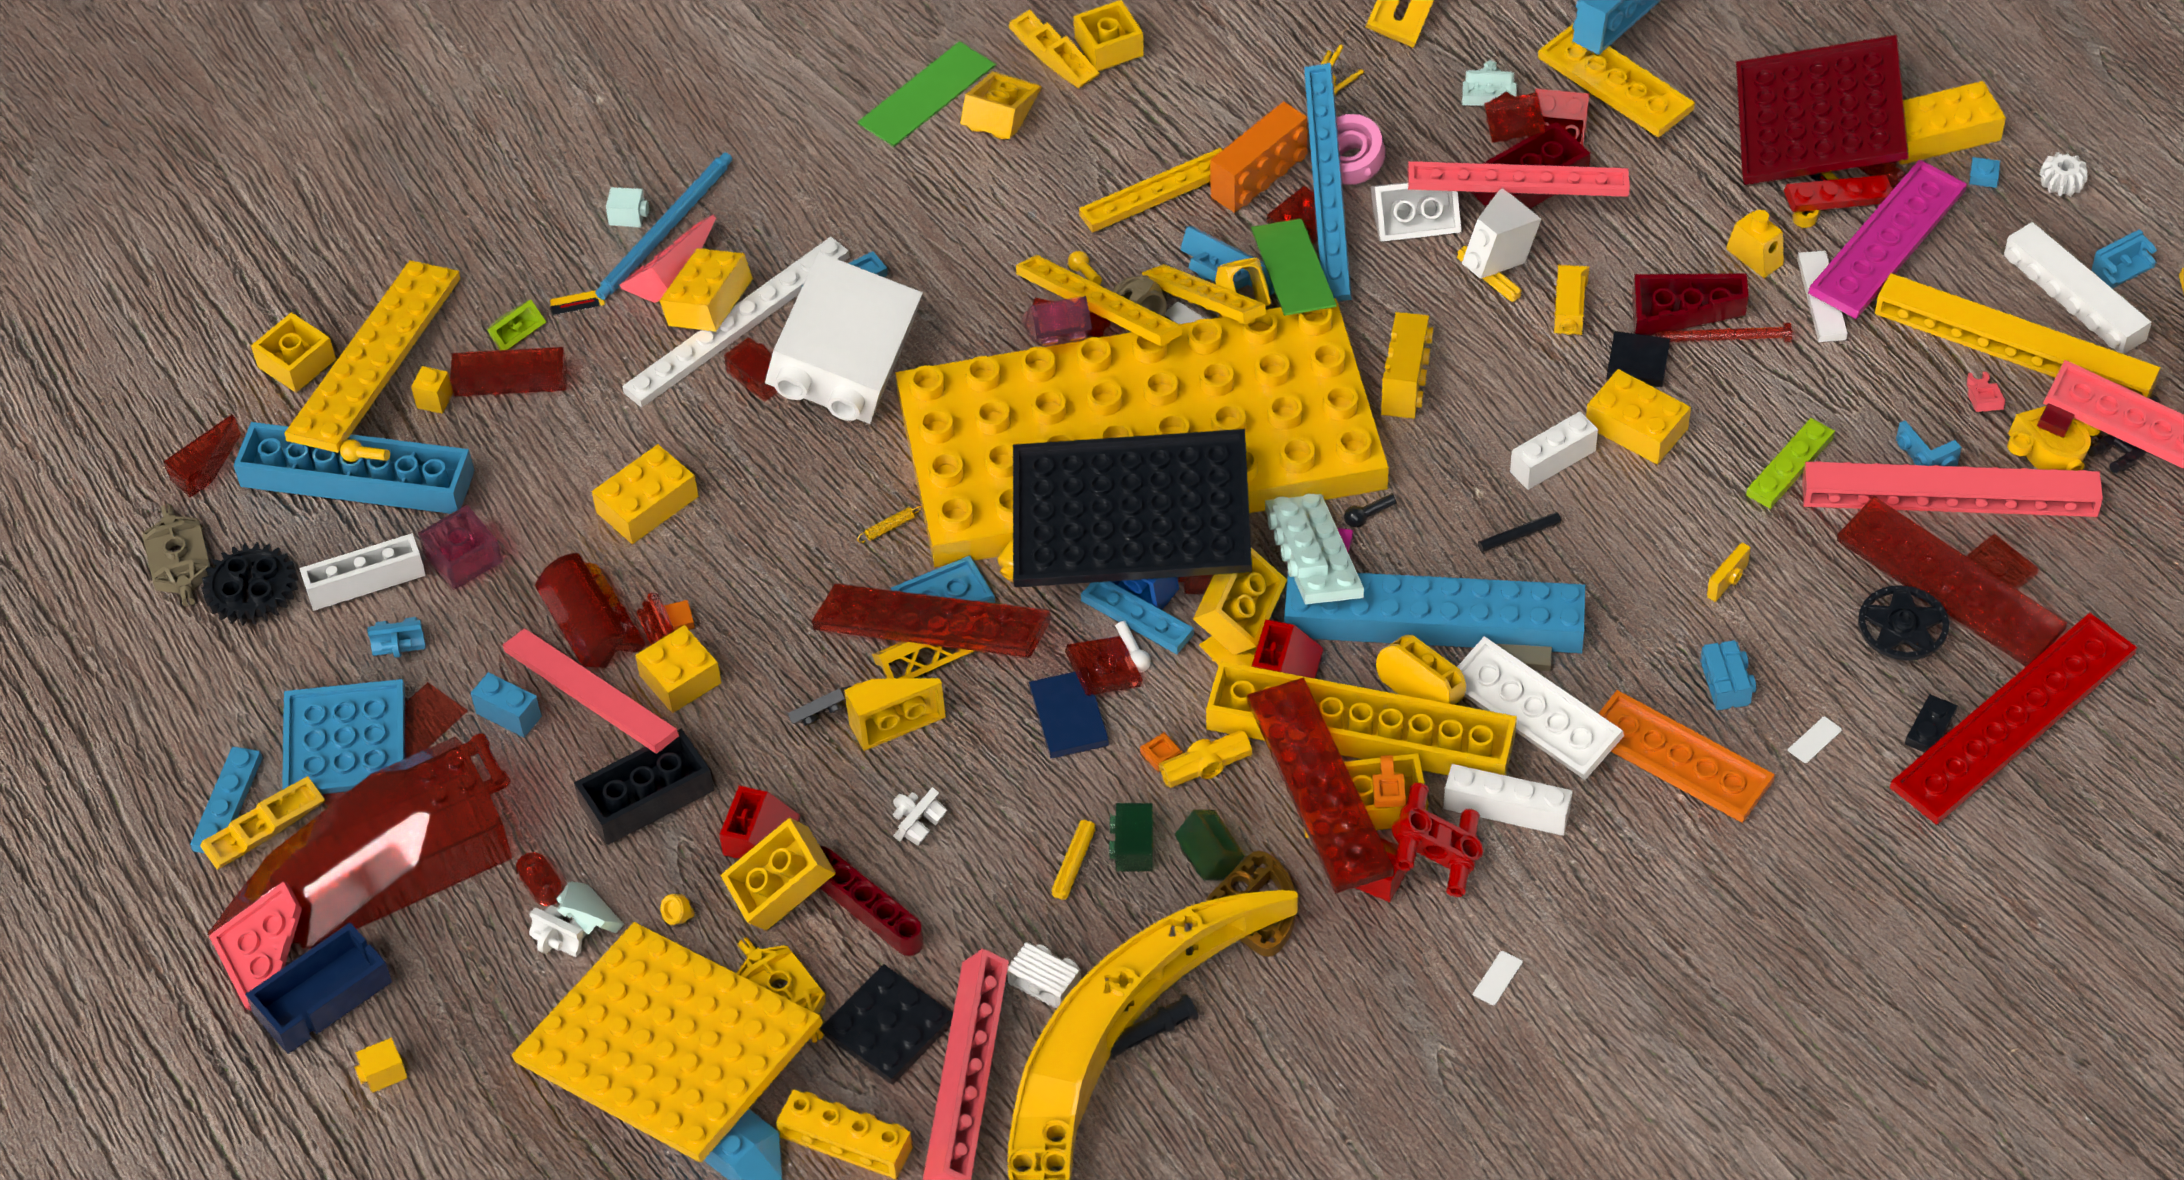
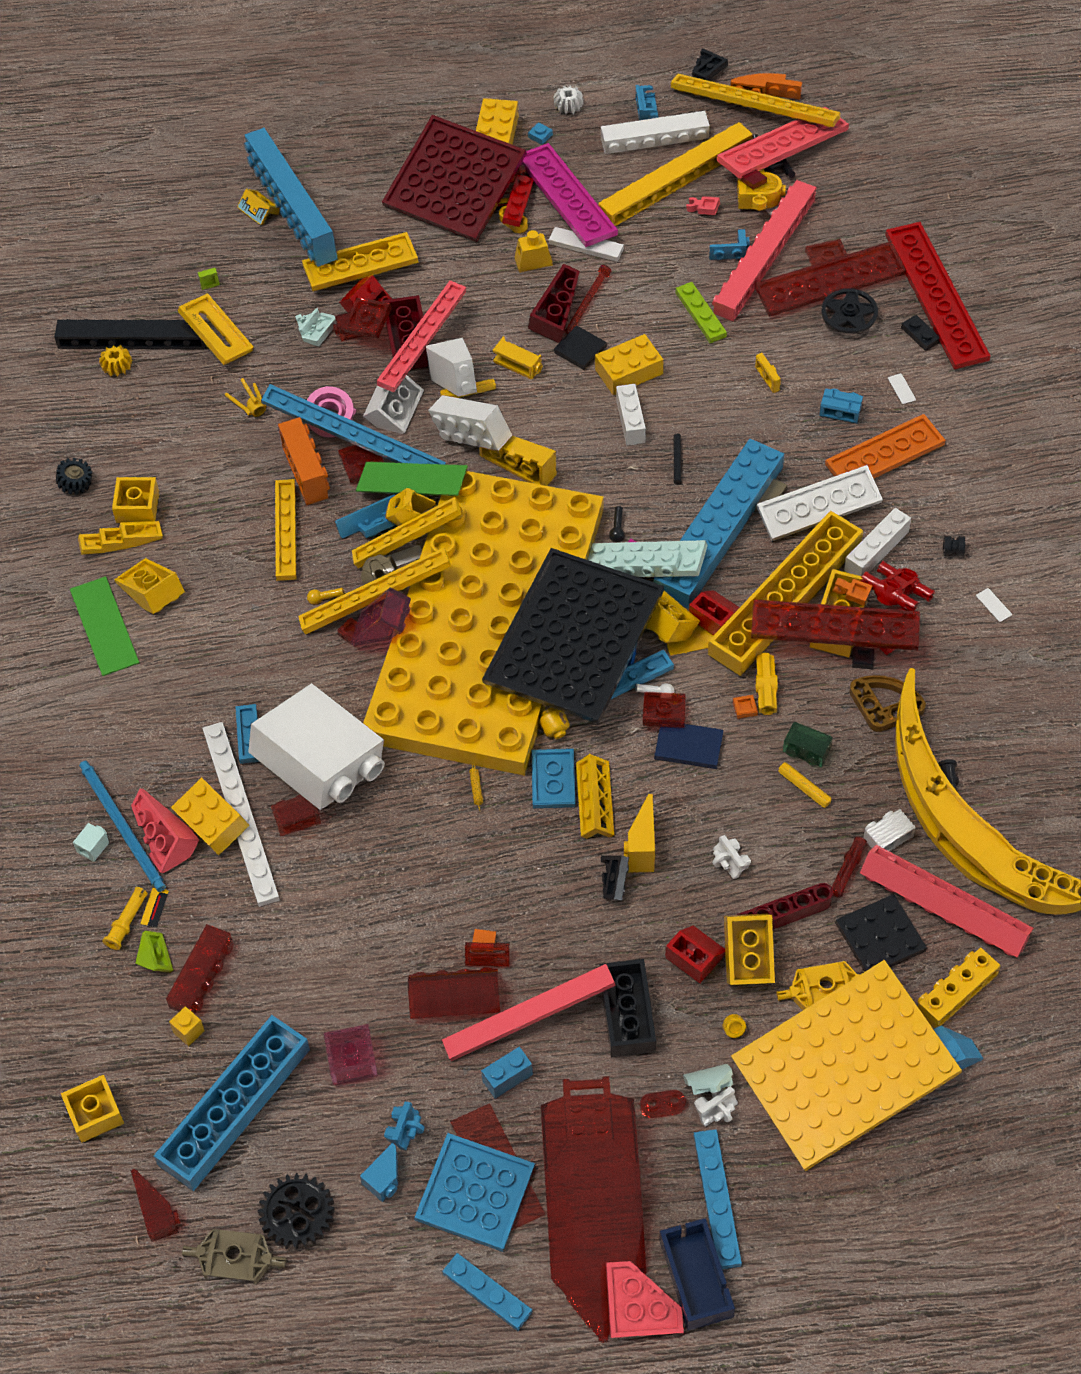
camera: 65 degrees left, 5 degrees up
(262, 823) = (525, 1271): yellow slope -> none
(328, 642) = (382, 1174): none -> dark azure slope
(352, 450) = (228, 1091): yellow bar -> none
(362, 571) = (335, 1127): white brick -> none
(372, 356) = (135, 1053): yellow plate -> none
(380, 1065) = (776, 1256): yellow brick -> none
(436, 981) = (717, 1198): none -> dark azure plate
(531, 281) = (121, 926): none -> yellow pin
(645, 494) = (368, 921): yellow brick -> none
(678, 669) = (535, 953): yellow brick -> none
(932, 620) = (584, 787): clear red plate -> none
(964, 949) = (852, 858): none -> clear red pin
(1209, 845) = (838, 705): clear green brick -> none
(1307, 856) = (863, 658): none -> black tile
(1408, 282) = (470, 422): none -> white brick
(1419, 671) = (768, 546): yellow brick -> none
(1563, 892) = (951, 545): none -> black wheel

